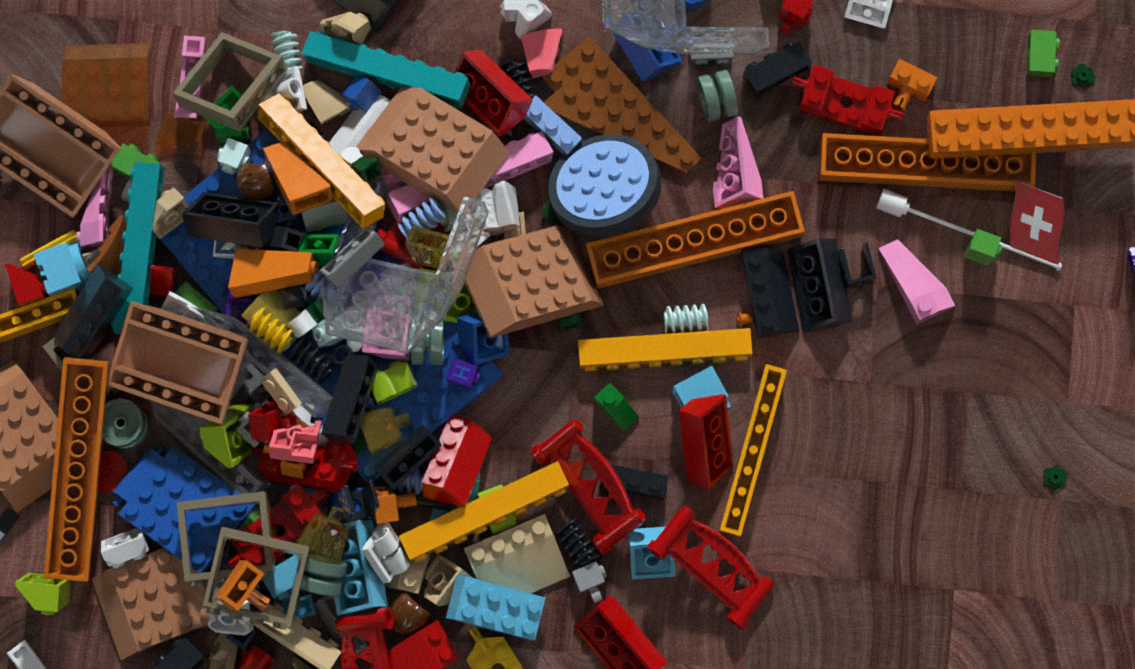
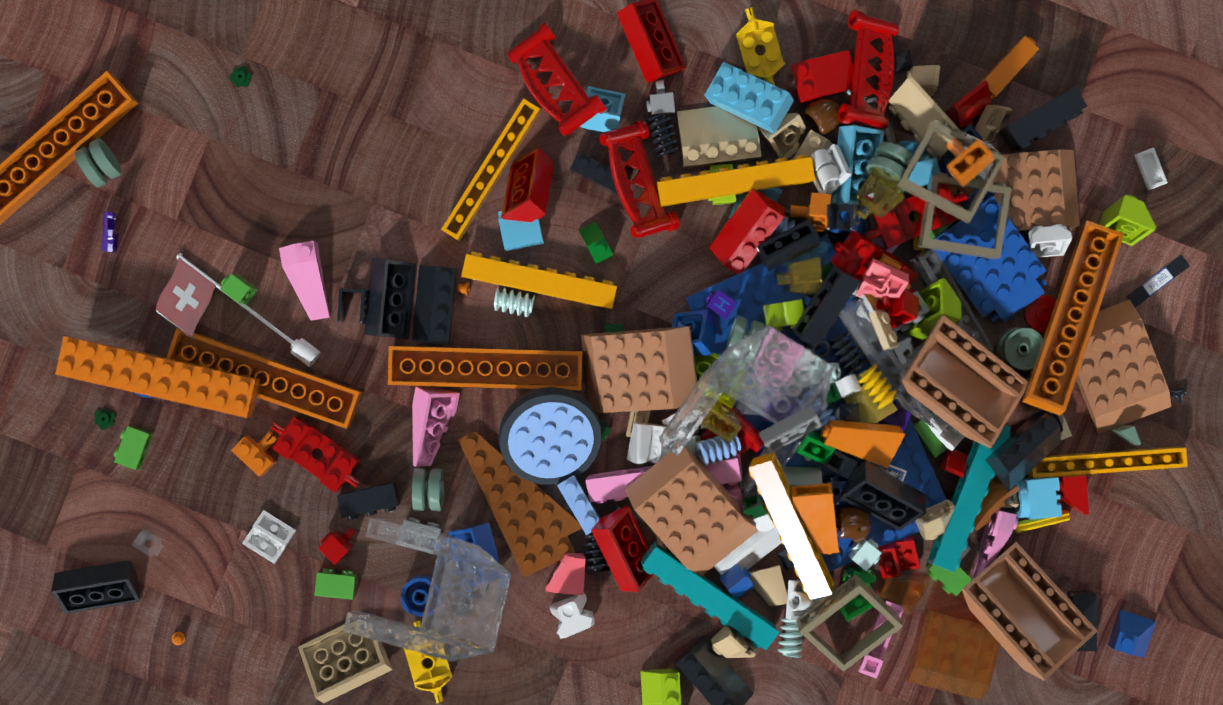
camera: 165 degrees left, 10 degrees up
(195, 167) = (898, 557): none -> red slope

